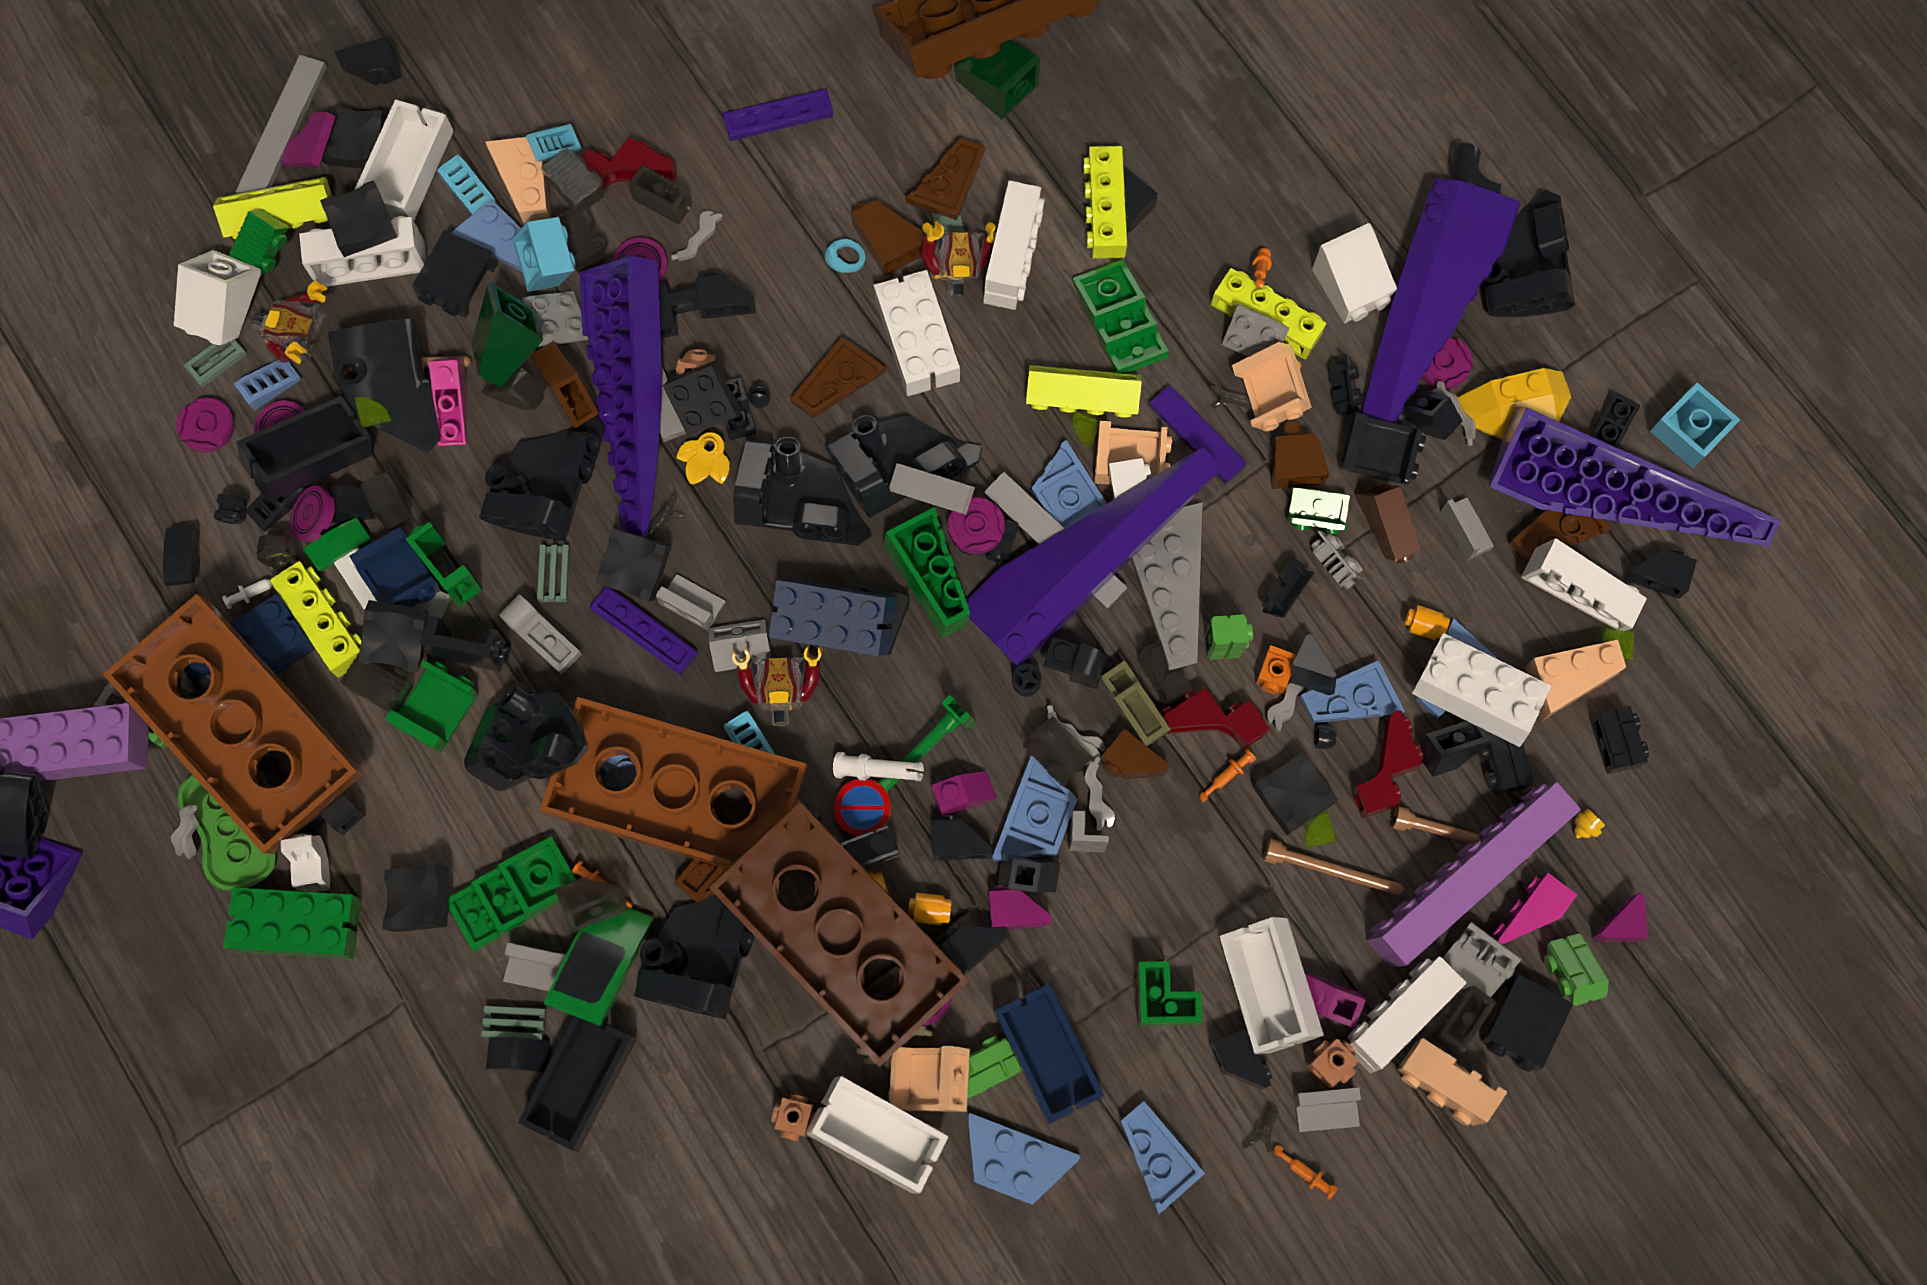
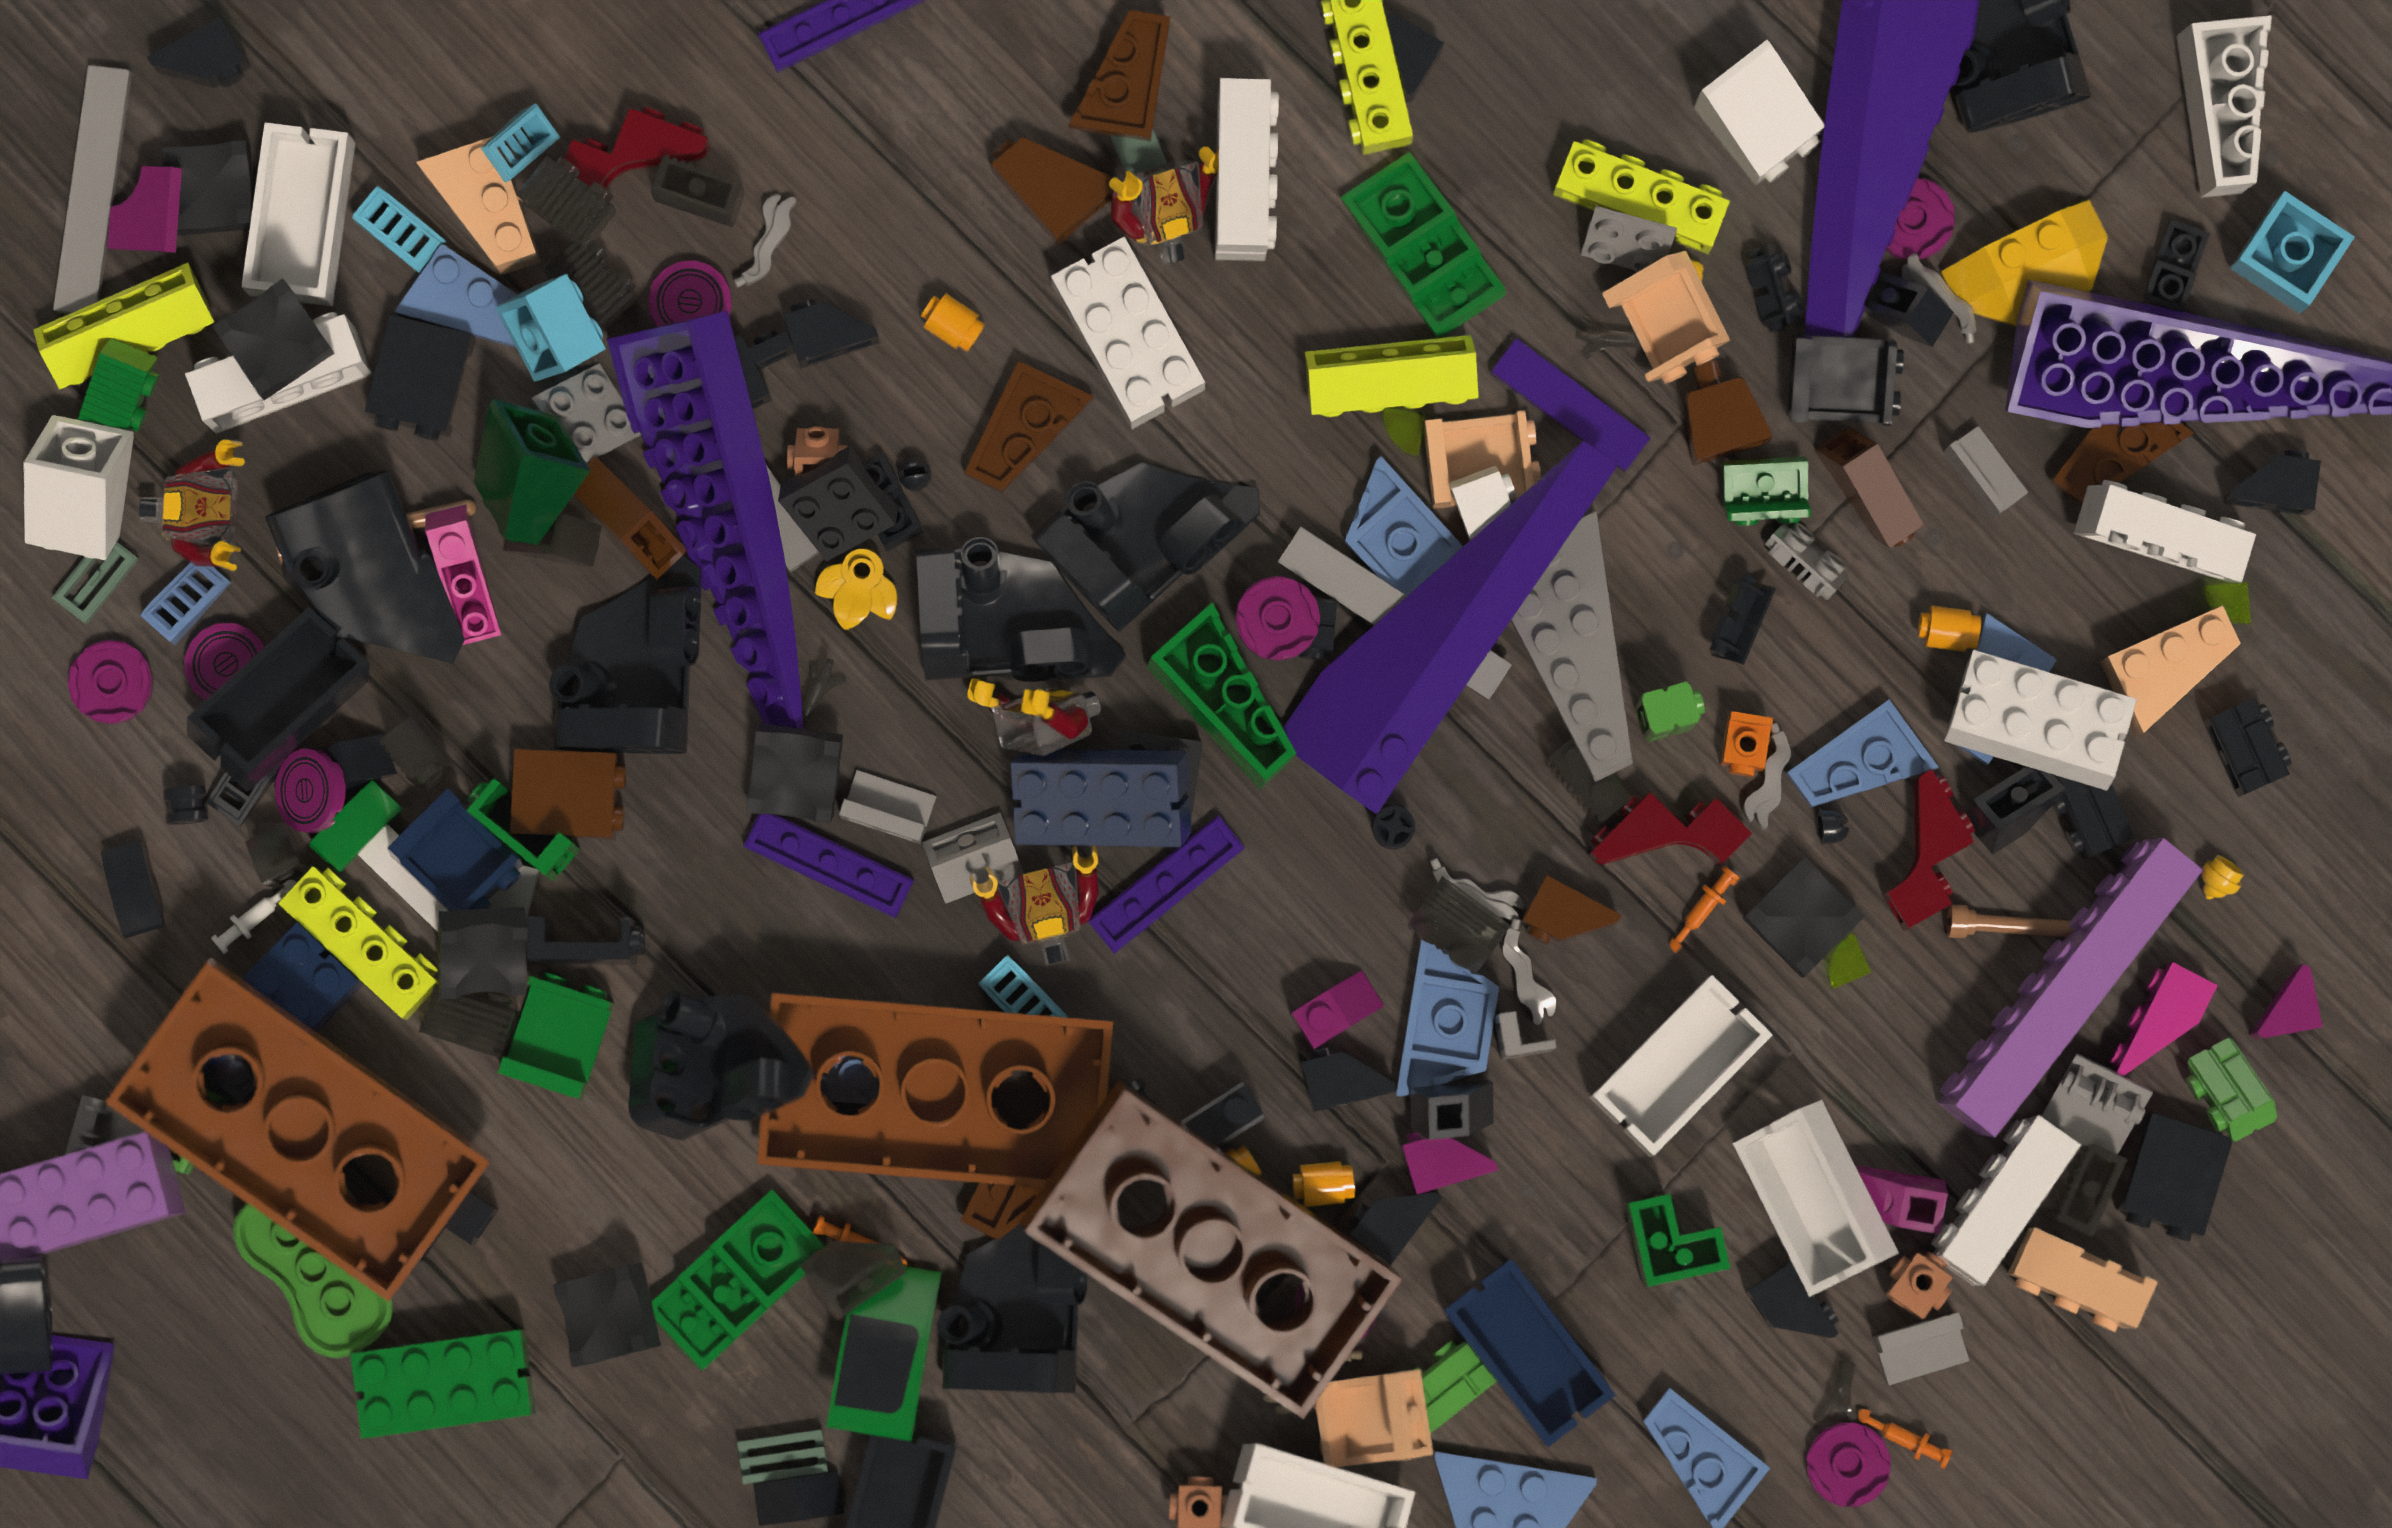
camera: 15 degrees left, 10 degrees up
(182, 836) = (257, 1298): light grey hair -> none
(308, 862) = (442, 1297): white brick -> none
(371, 412) = (362, 625): clear neon green tile -> none
(482, 547) = (566, 794): none -> reddish brown panel
(531, 966) = (793, 1376): light grey panel -> none
(540, 634) = (683, 901): light grey plate -> none
(554, 550) = (671, 770): sand green tile -> none
(803, 559) = (1040, 719): none -> torso
(805, 306) = (952, 322): none -> light orange brick
(837, 263) = (974, 235): medium azure piece -> none
(864, 767) = (1191, 1002): white pin -> none
(865, 688) = (1166, 884): none -> dark purple tile
(865, 804) = (1201, 1053): piece -> none
(931, 489) = (1202, 578): light grey tile -> none
(1080, 661) = (1459, 789): black brick -> none
(1135, 703) = (1556, 835): olive slope -> none
(1192, 876) = (1680, 1066): none -> white piece
(1261, 1183) = (1848, 1464): none -> magenta tile
(1262, 264) = (1619, 120): orange piece -> none
(1276, 852) = (1794, 1006): medium nougat piece -> none
(1313, 669) = (1796, 733): black slope -> none
(1662, 321) = (2224, 99): none -> white wedge

